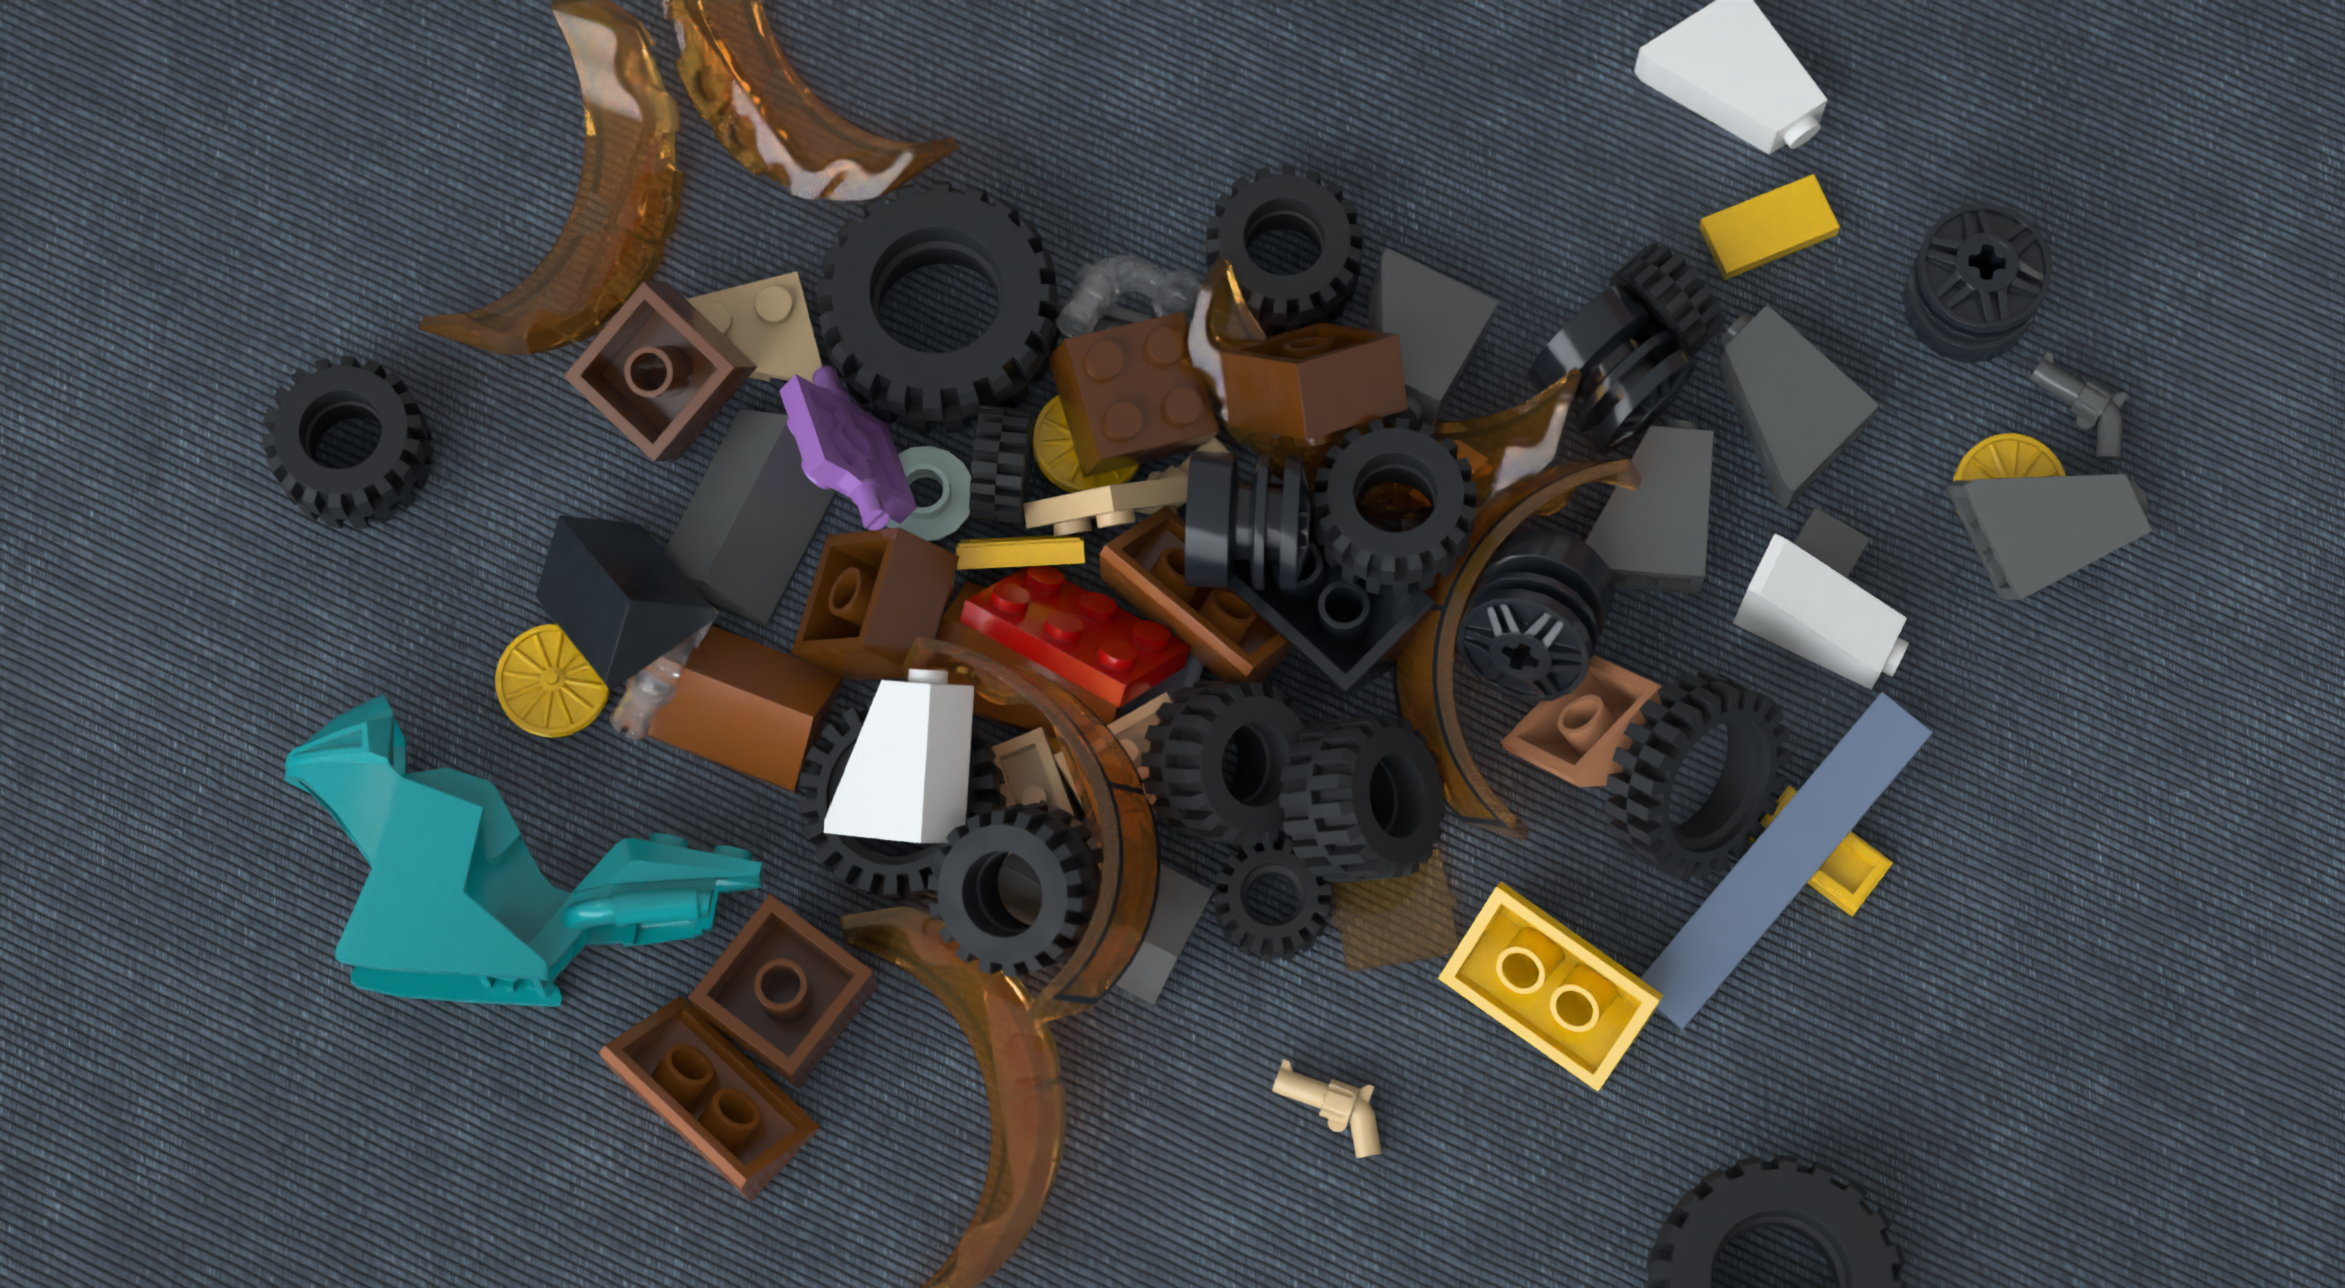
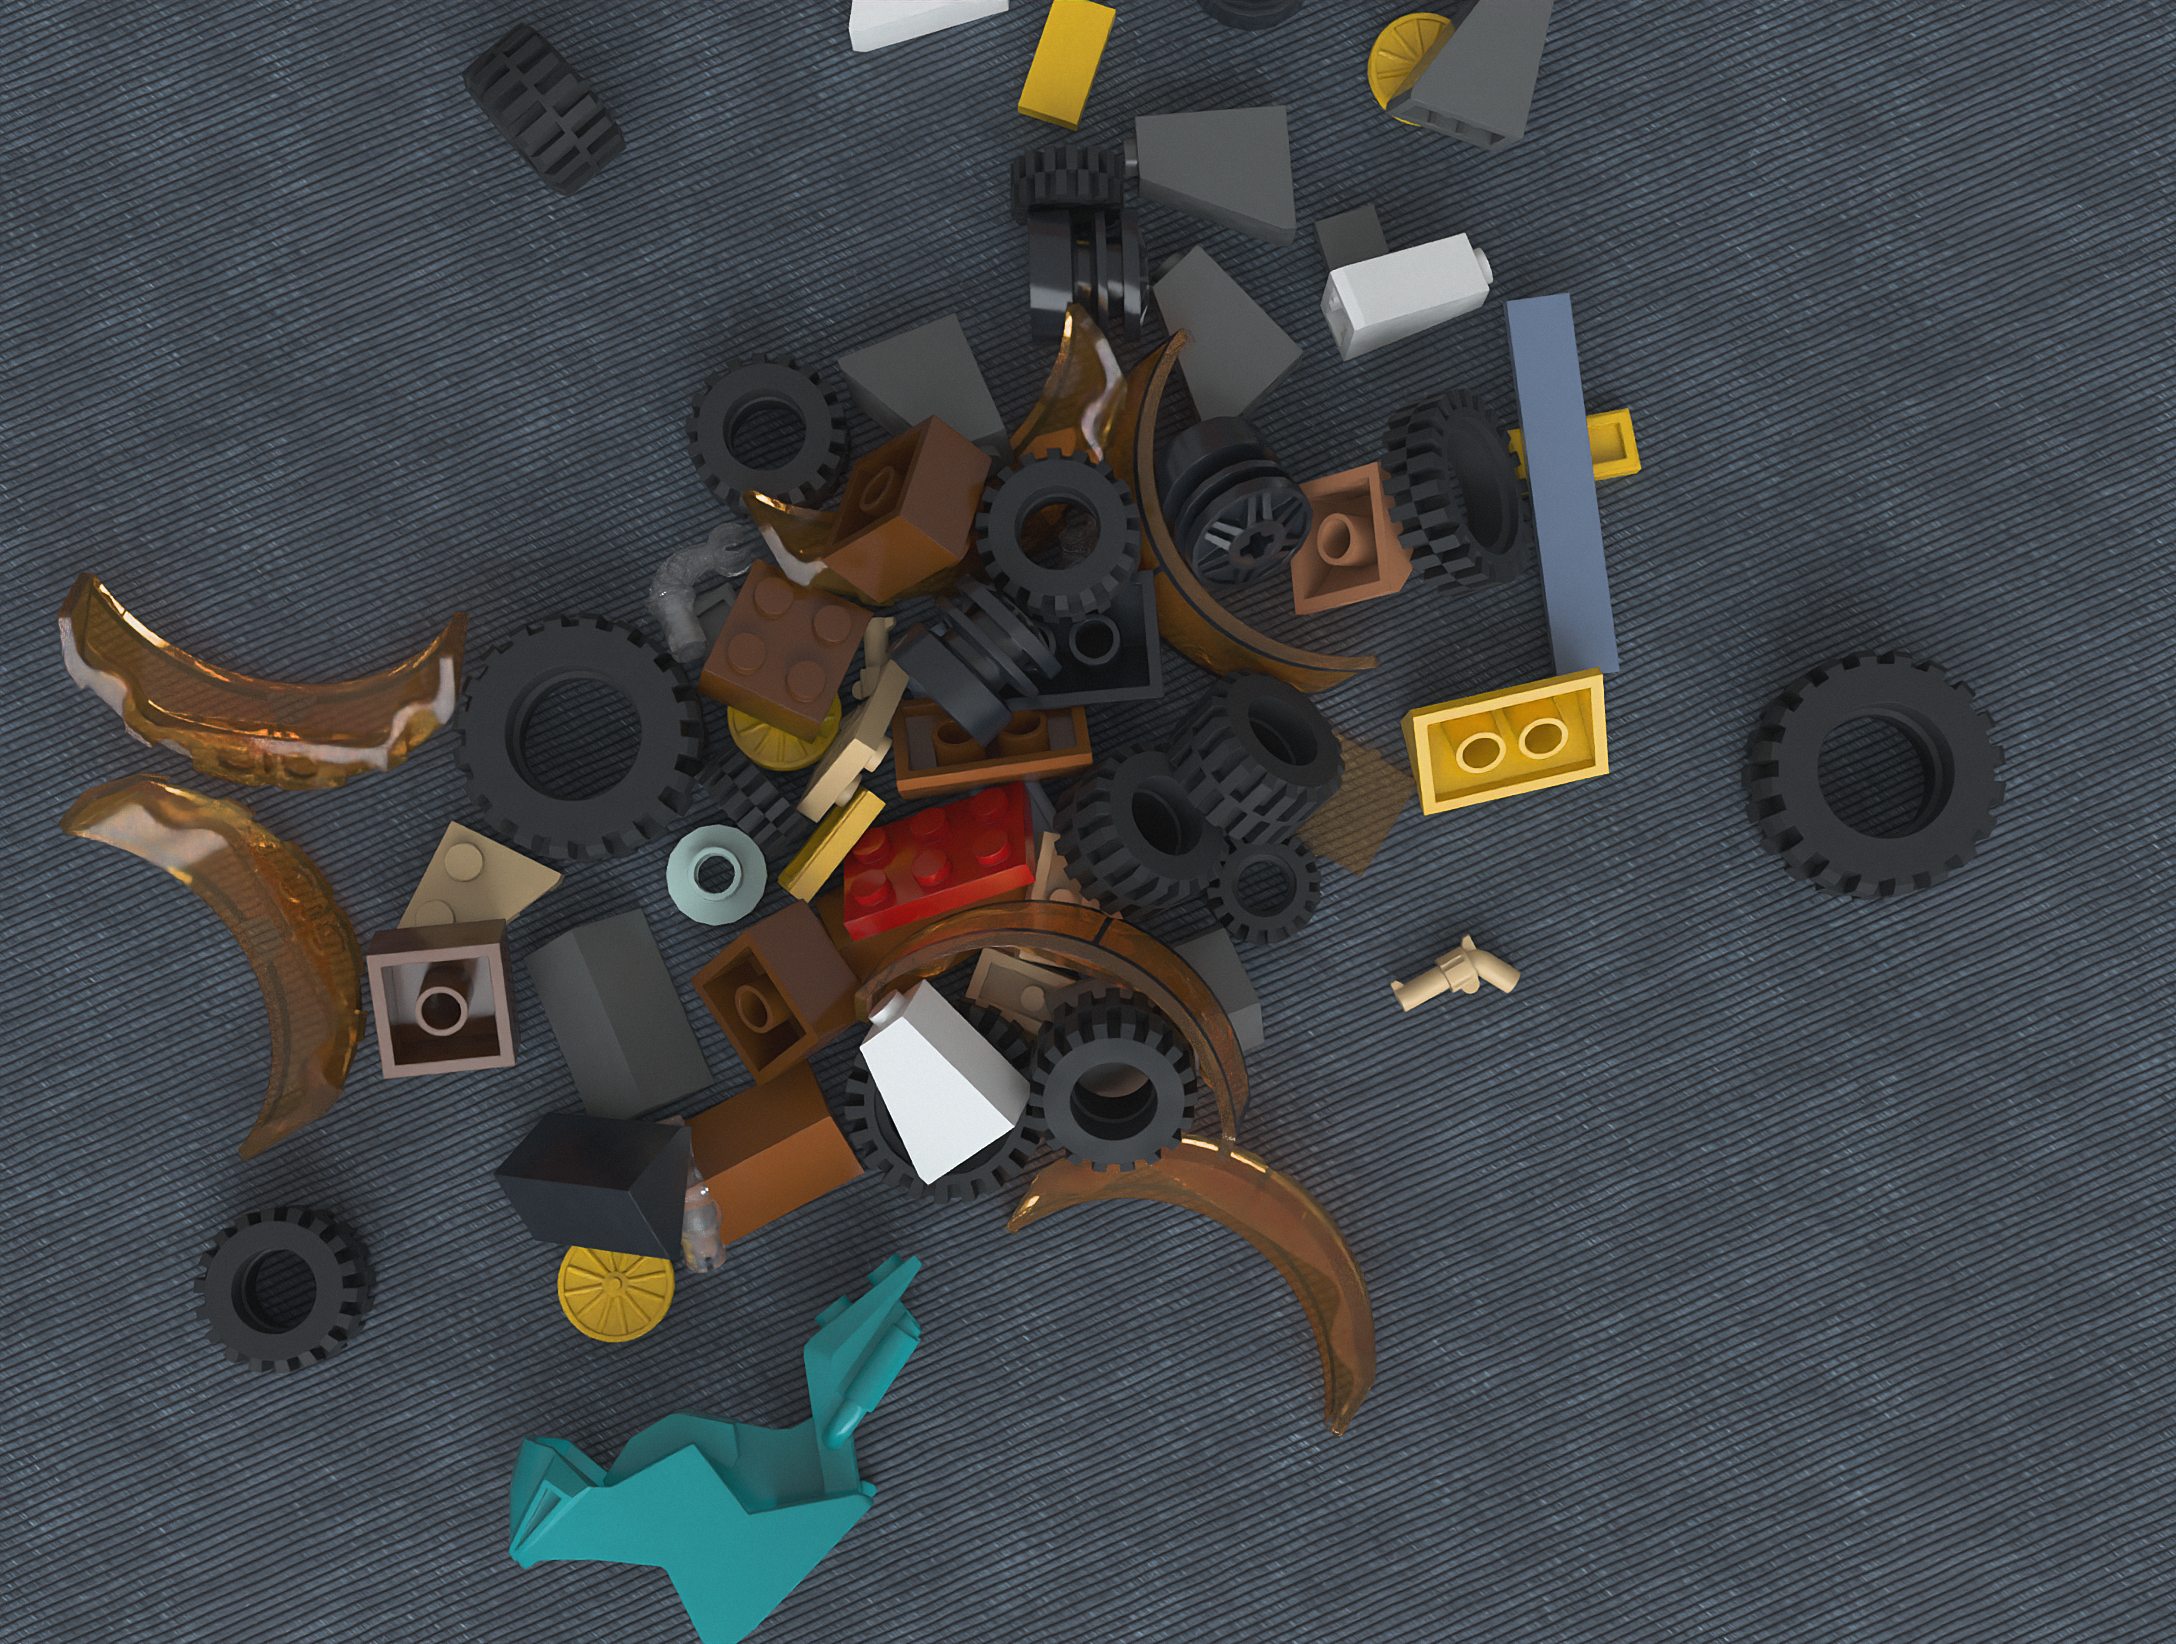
camera: 50 degrees left, 10 degrees up
(710, 1095) = (1049, 1437): dark orange slope -> none
(783, 991) = (1021, 1317): reddish brown brick -> none
(847, 448) = (638, 908): medium lavender plate -> none

